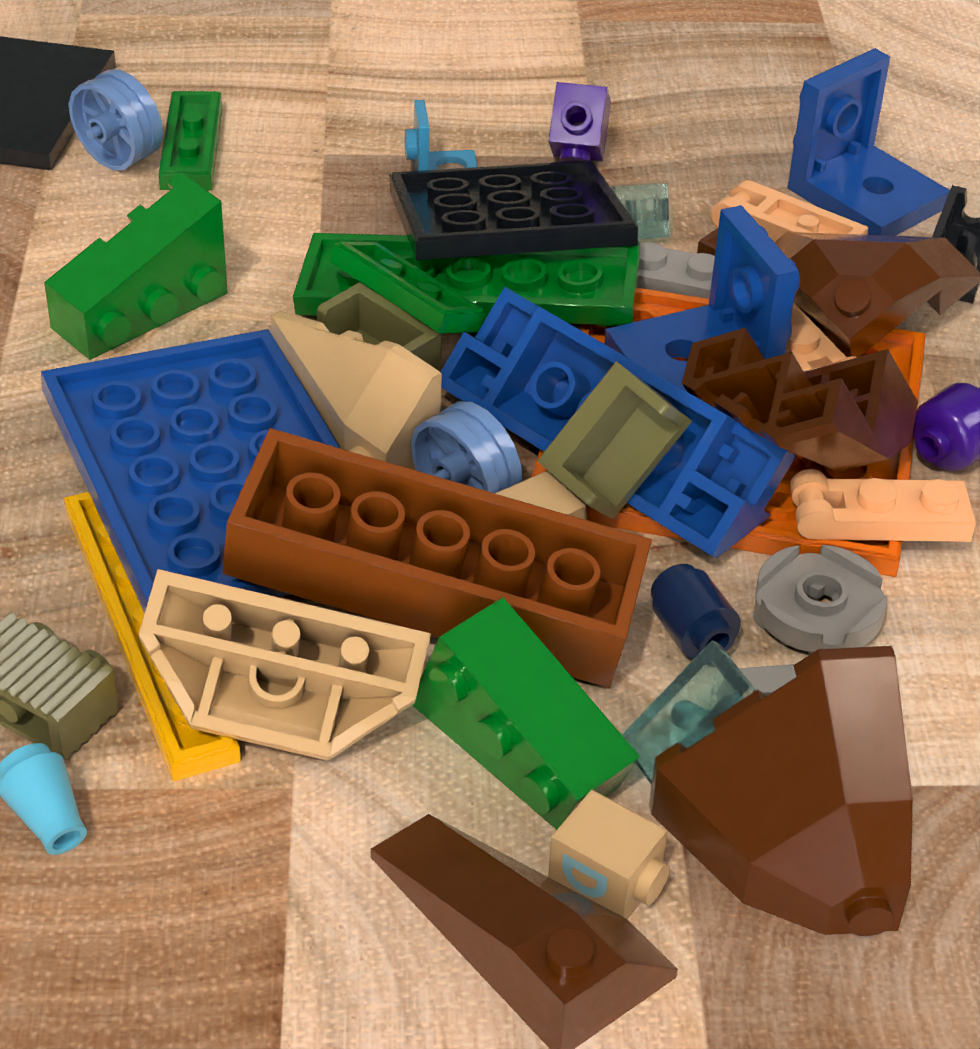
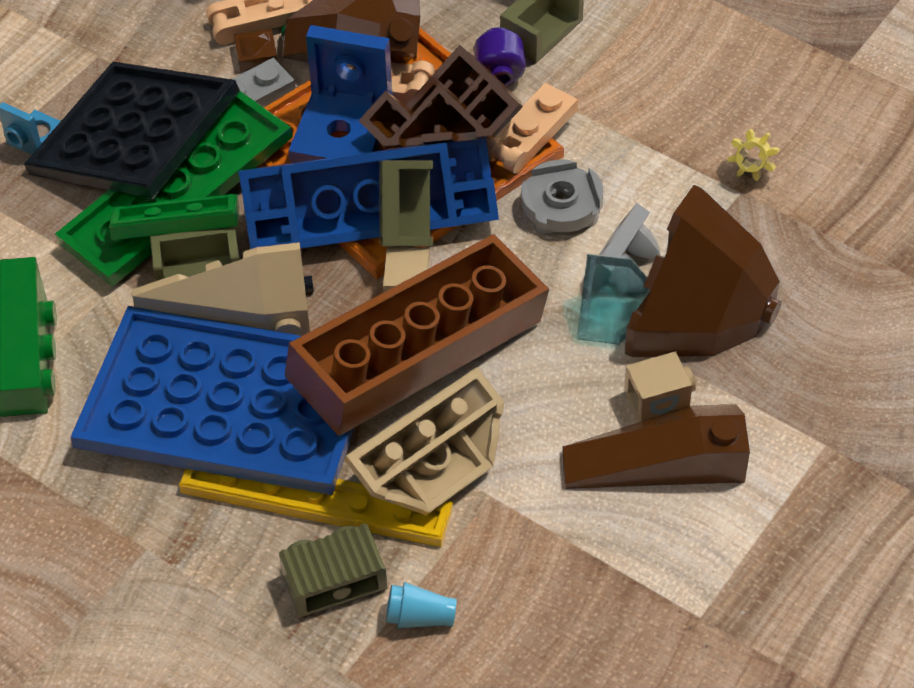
camera: 50 degrees left, 10 degrees up
(467, 448) = (347, 275): medium blue wheel -> none
(521, 714) = (550, 364): green wedge -> none
(579, 122) = (84, 44): brick -> none
(647, 206) = (190, 60): clear light blue tile -> none
(693, 609) = (534, 250): dark blue brick -> none

